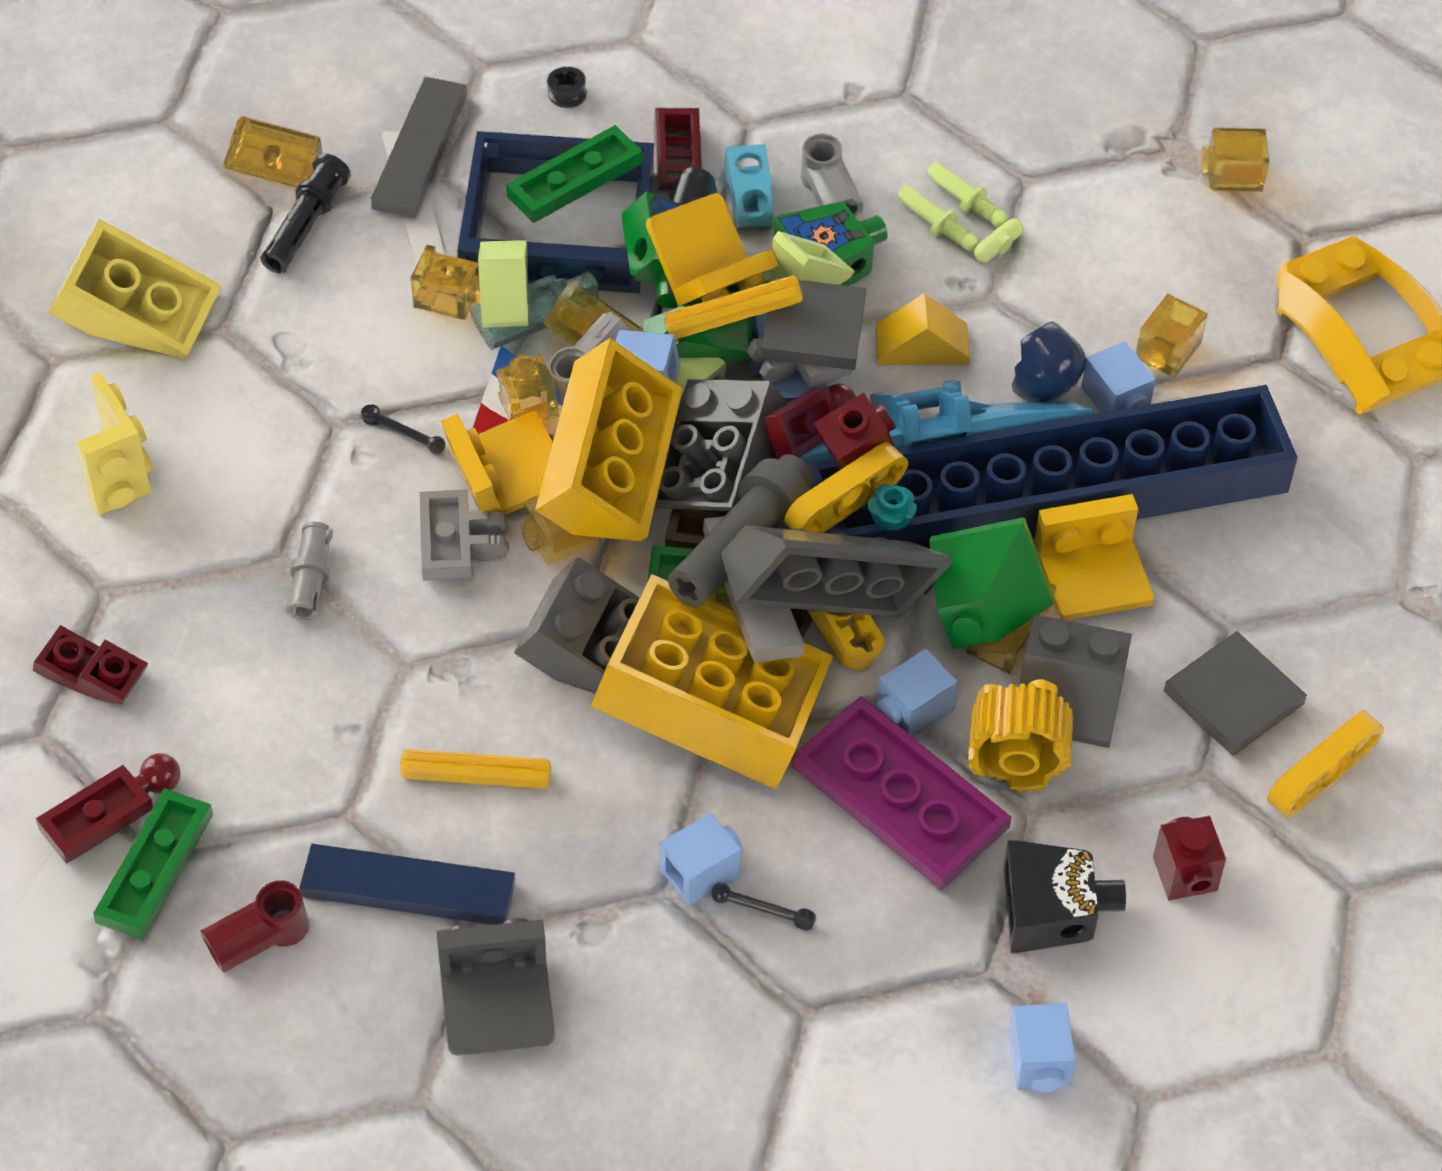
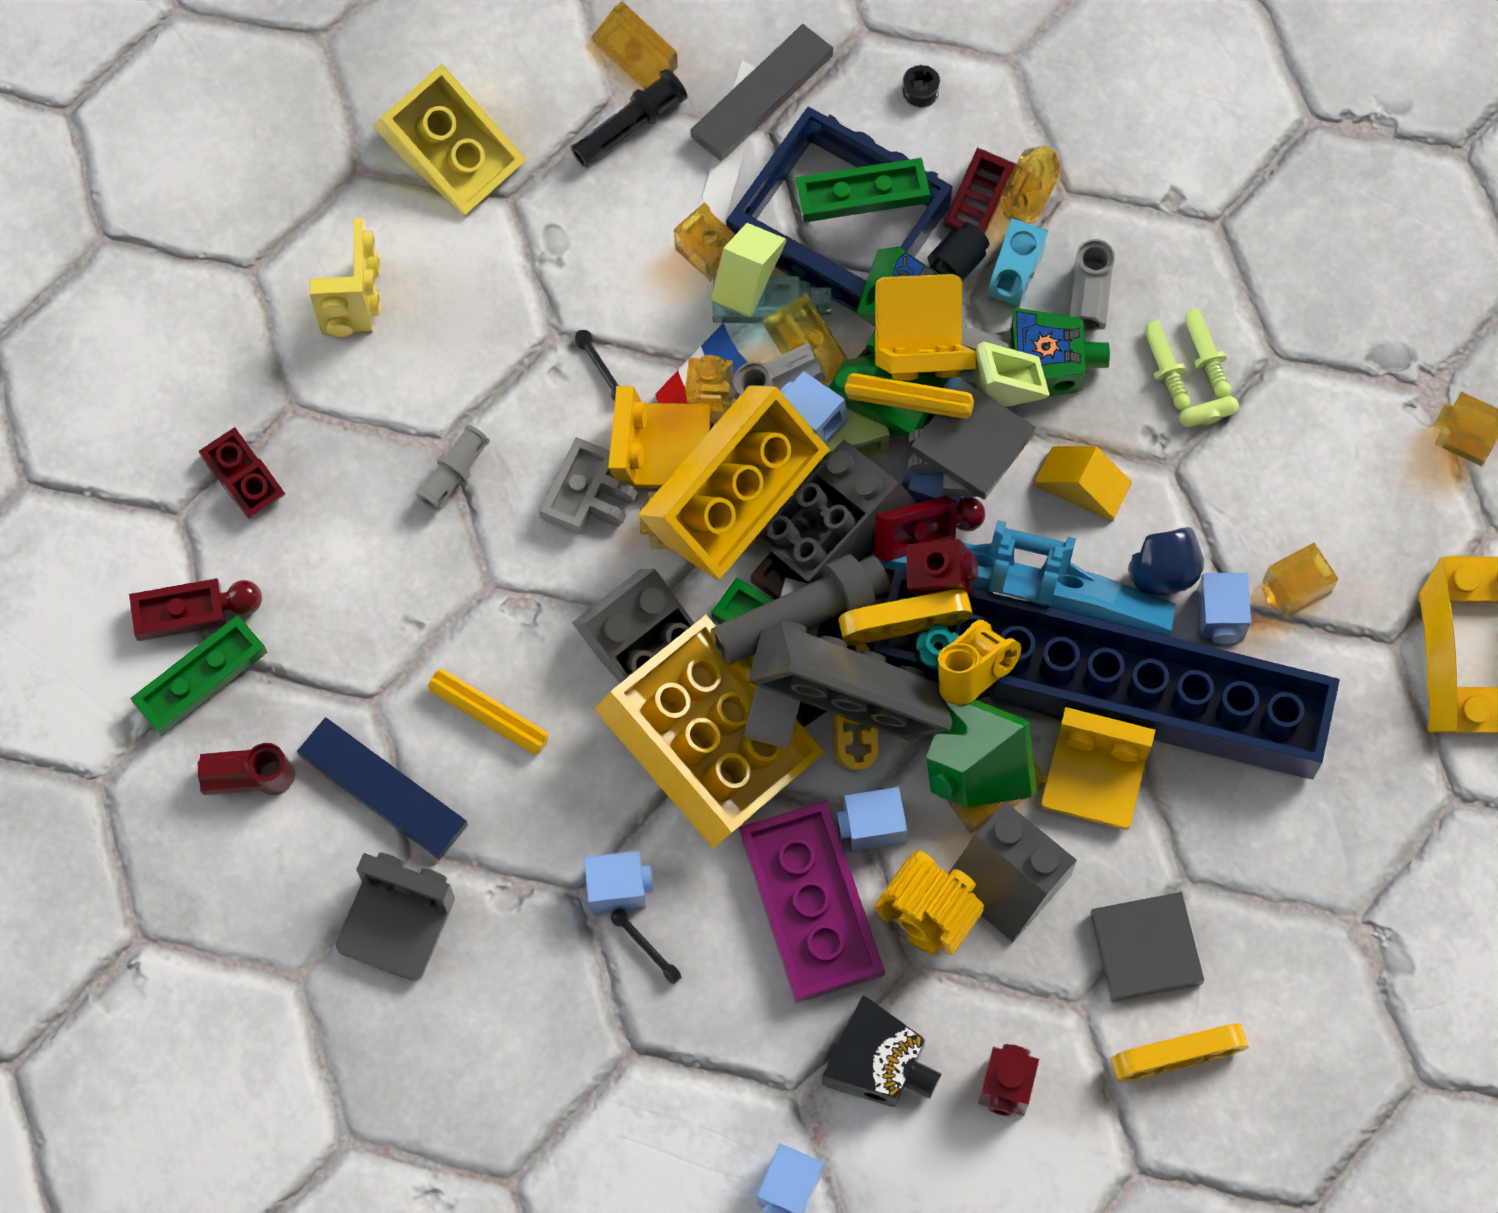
camera: 30 degrees right, 15 degrees up
(720, 121) = (1030, 184): none -> clear yellow plate
(938, 499) = (975, 663): none -> yellow piece

